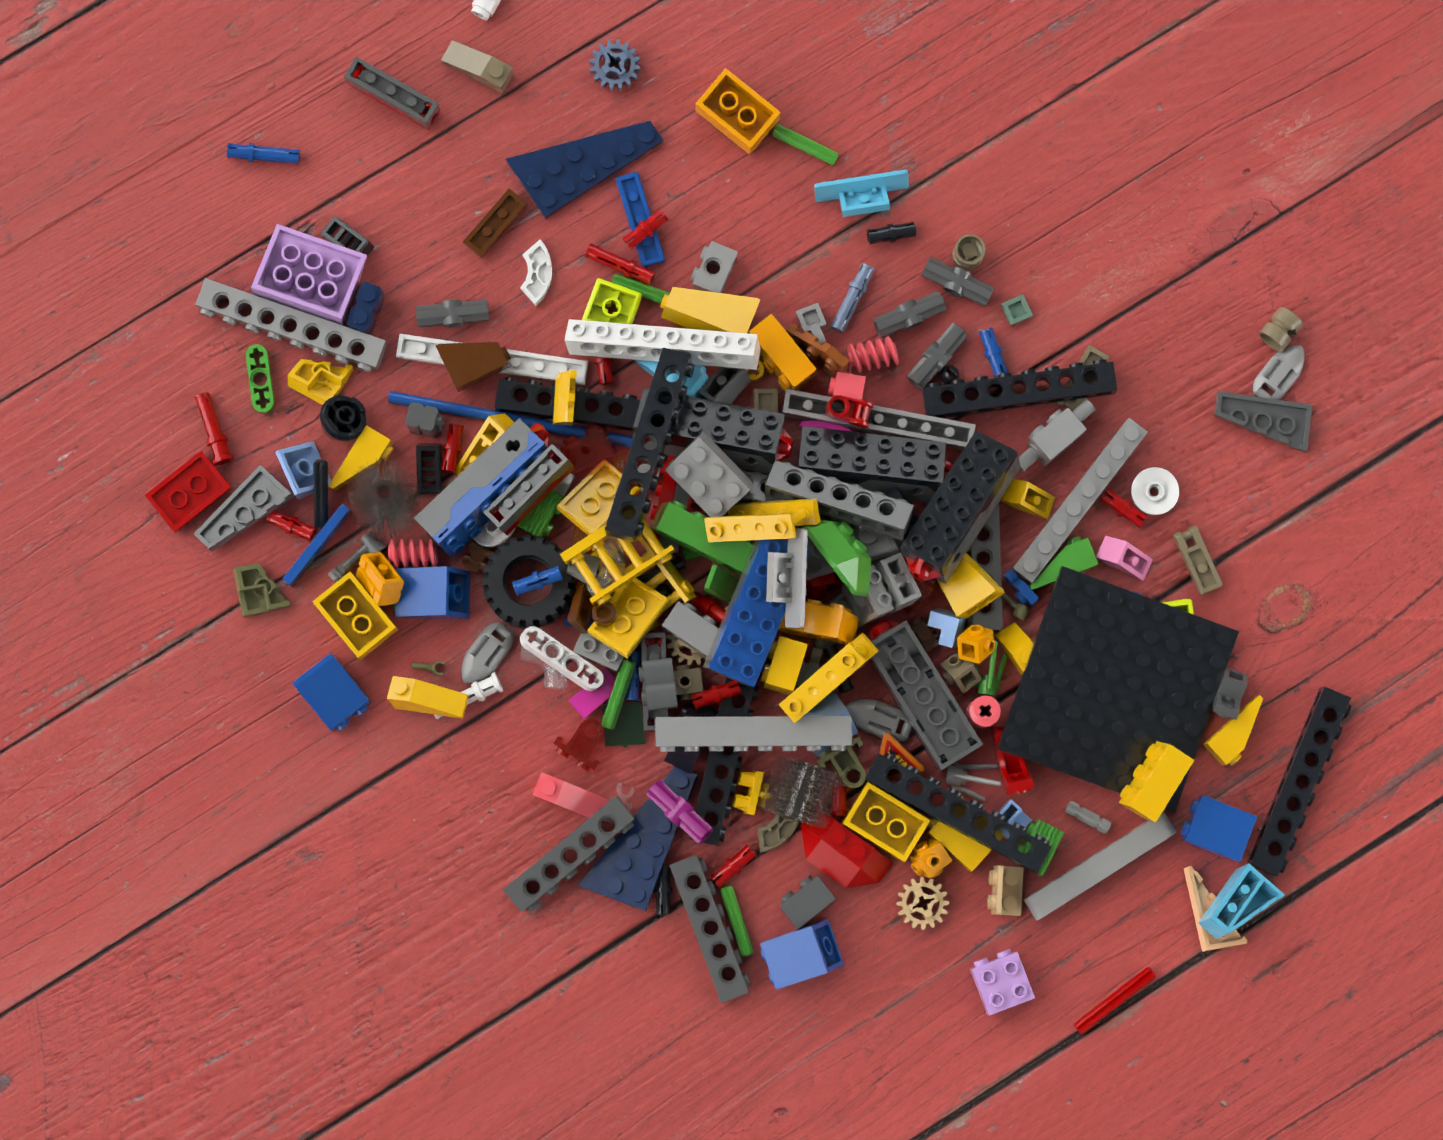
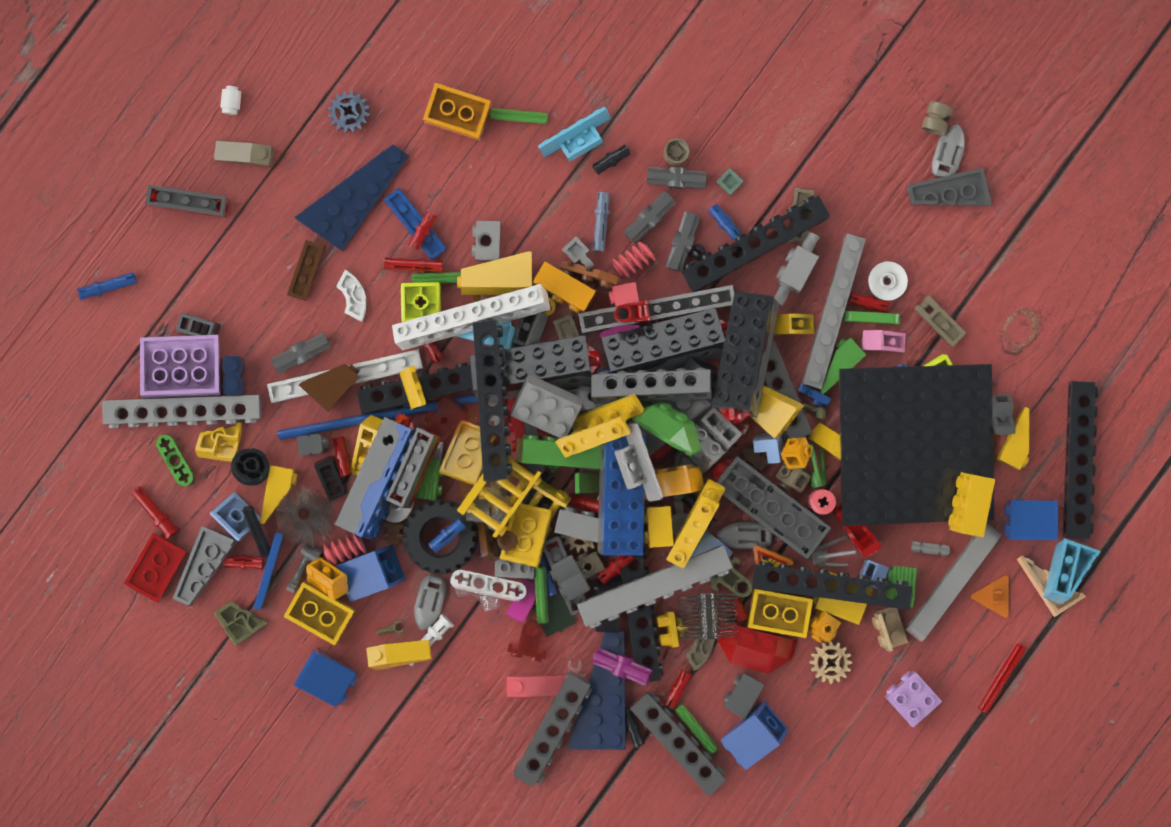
camera: 15 degrees left, 5 degrees up
(1120, 526) = (870, 317): none -> bright green beam
(1141, 902) = (995, 596): none -> orange piece

